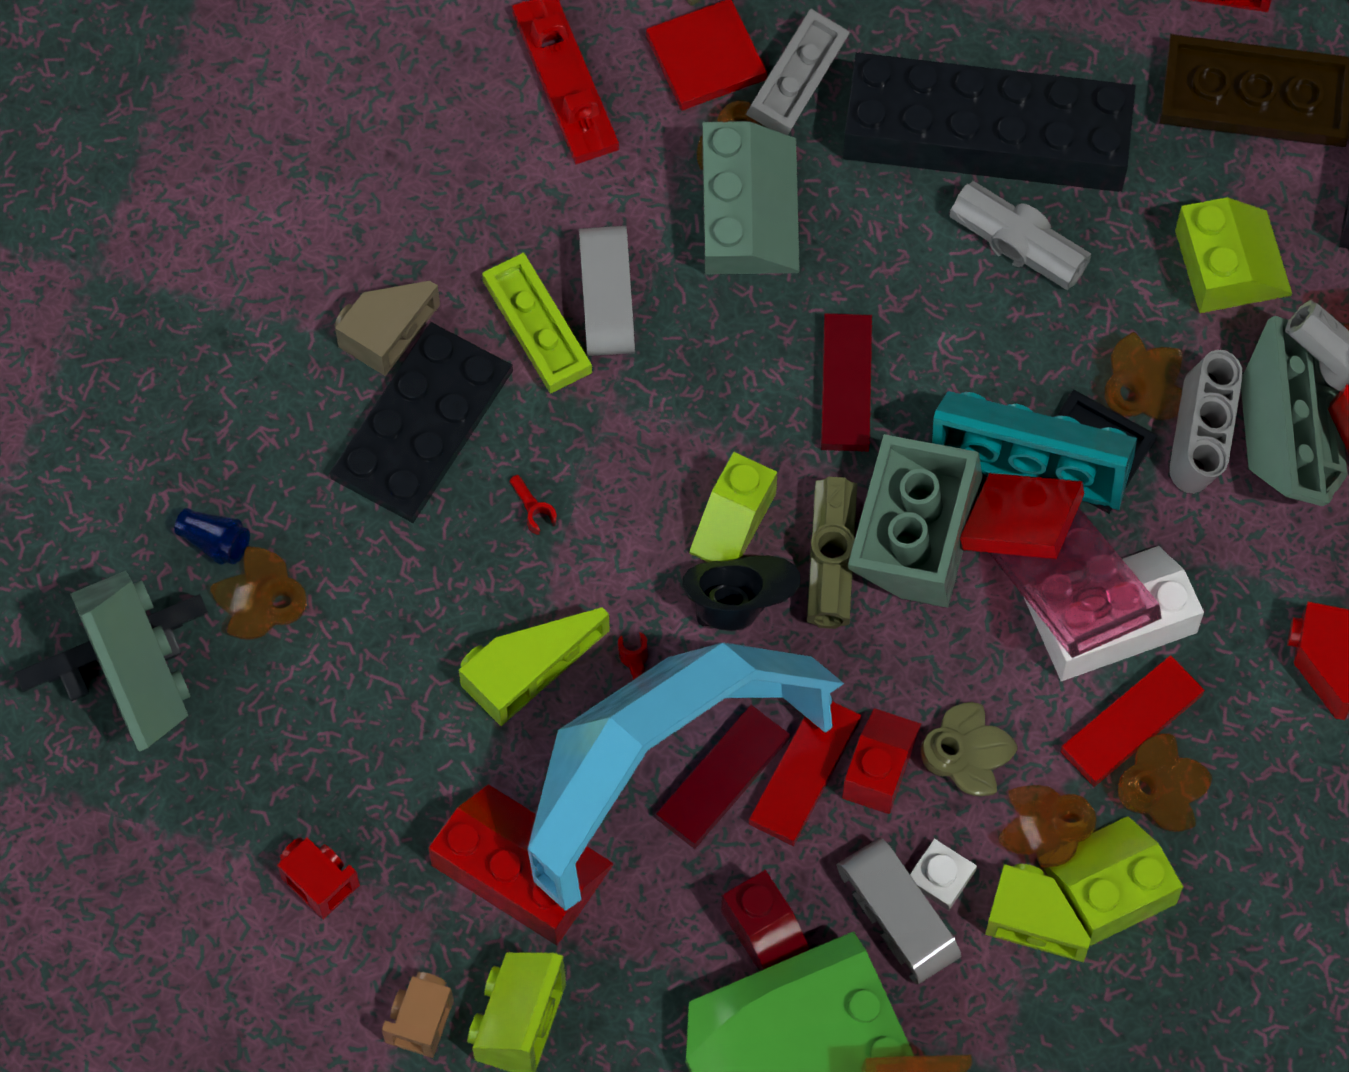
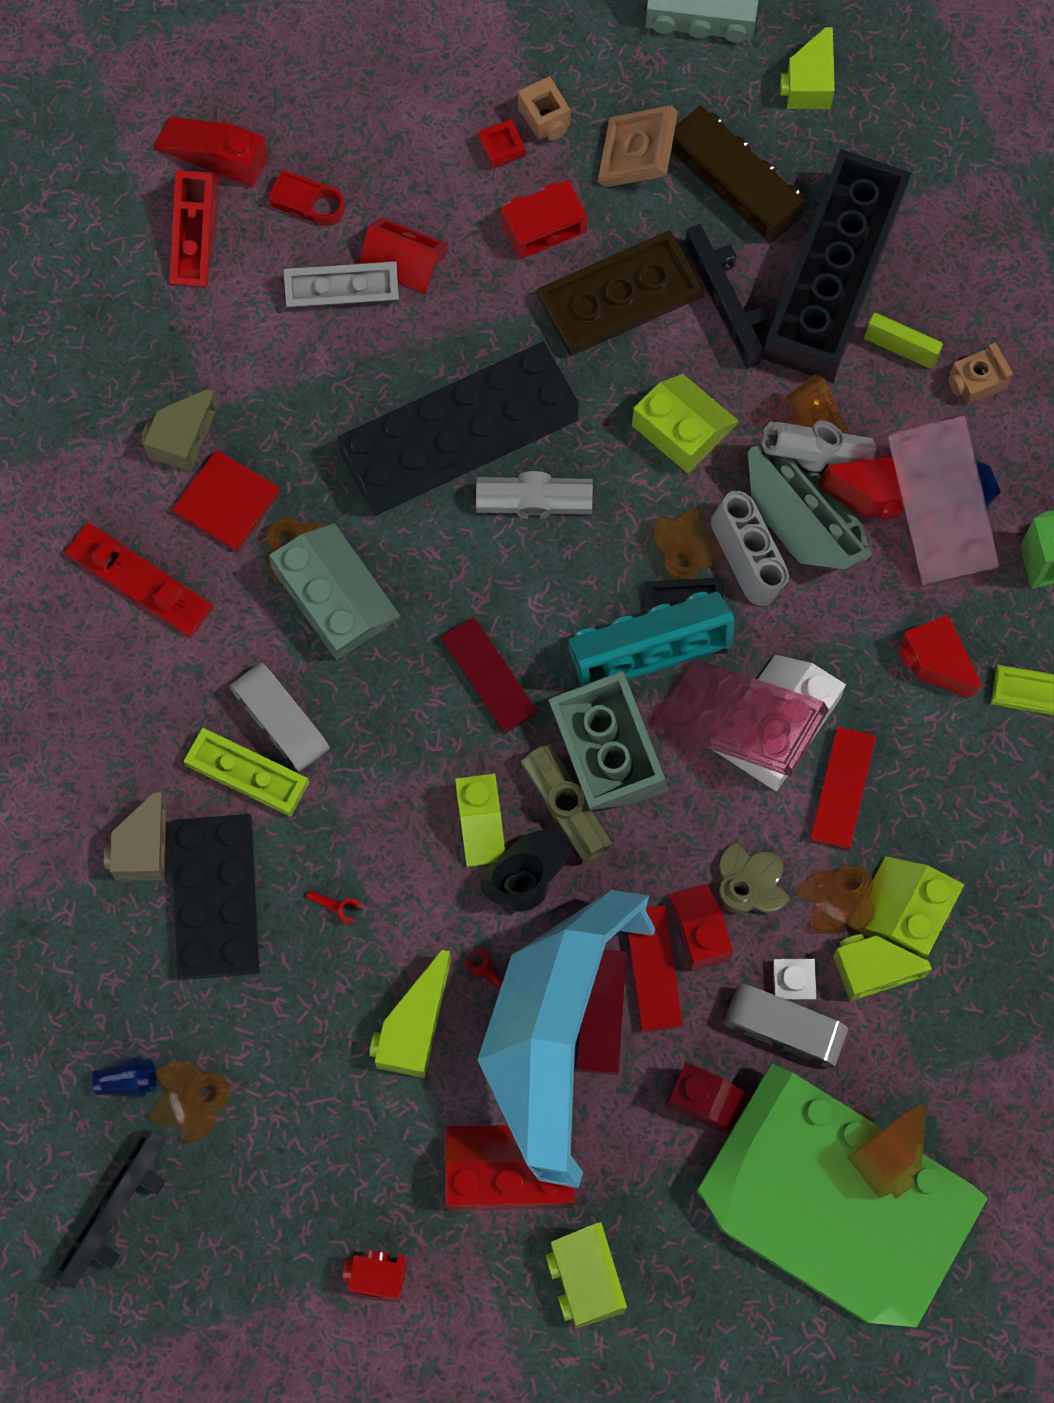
camera: 35 degrees left, 5 degrees up
(133, 657) = (140, 1212): sand green slope -> none
(419, 1015) = (518, 1324): medium nougat brick -> none
(798, 73) = (303, 475): light grey plate -> none
(1022, 515) = (678, 695): red tile -> none
(1172, 784) = (897, 813): clear orange plate -> none

